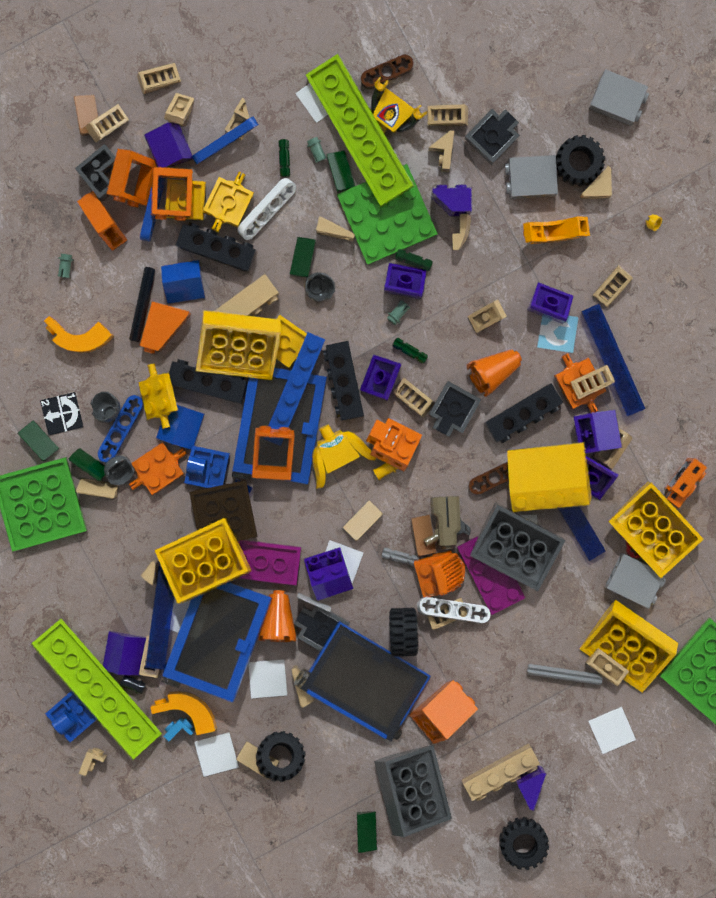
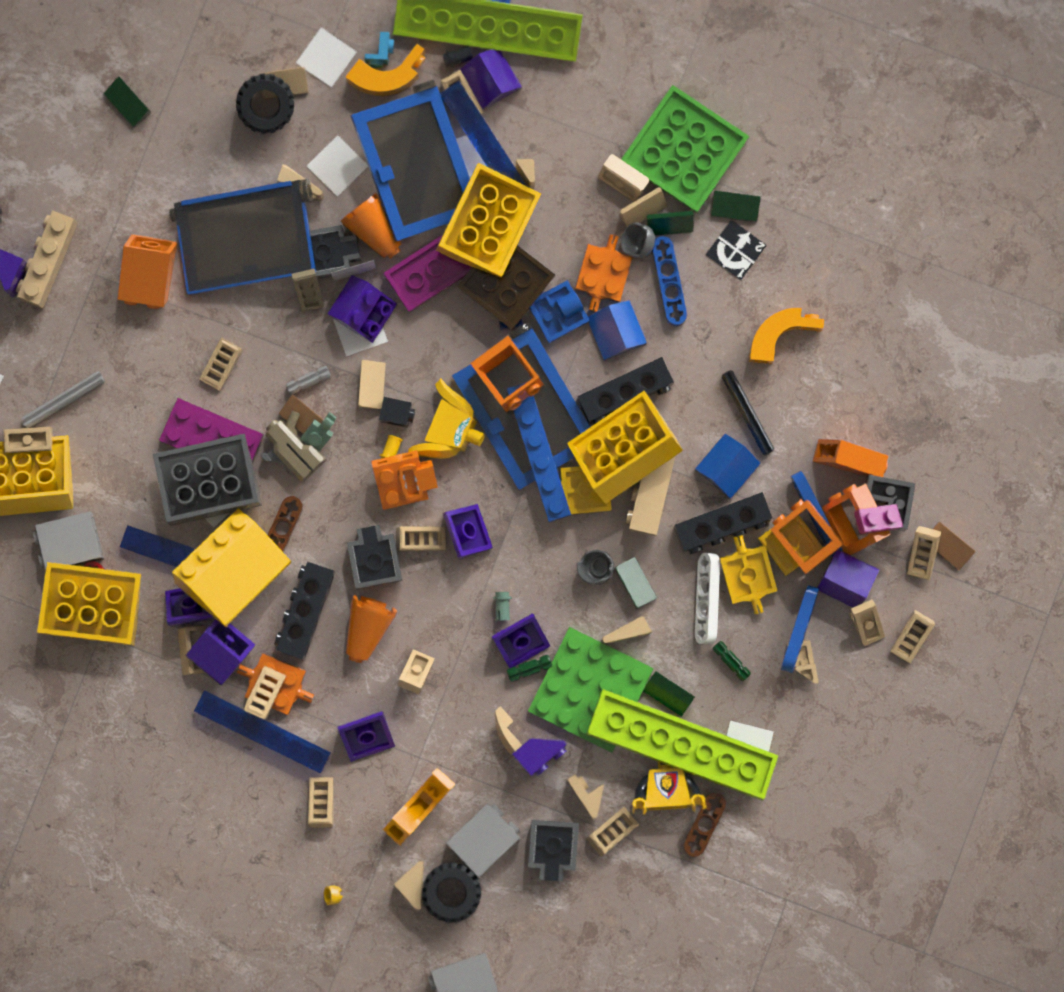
camera: 140 degrees right, 5 degrees down
(65, 265) = (849, 388): sand green pin -> none
(94, 518) = (623, 178): none -> tan slope
(105, 407) = (700, 288): dark grey hair -> none
(117, 163) = (878, 519): none -> plate
(158, 396) = (659, 339): yellow plate -> none
(161, 326) = (711, 407): orange slope -> none
(316, 149) = (708, 694): sand green pin -> none
(342, 350) = (466, 482): black brick -> none
(353, 614) = (308, 290): none -> dark tan plate
(362, 489) = (396, 412): none -> black brick
(403, 632) = (246, 311): black tyre -> none
(410, 350) = (461, 580): dark green axle -> none
(412, 790) = (115, 175): dark grey slope -> none
(422, 517) = (318, 433): none -> sand green plate
(440, 573) = (258, 395): orange piece -> none
(453, 610) = (218, 374): white beam -> none
(558, 335) = (333, 711): medium azure sticker -> none
(684, 481) = (100, 671): orange piece -> none

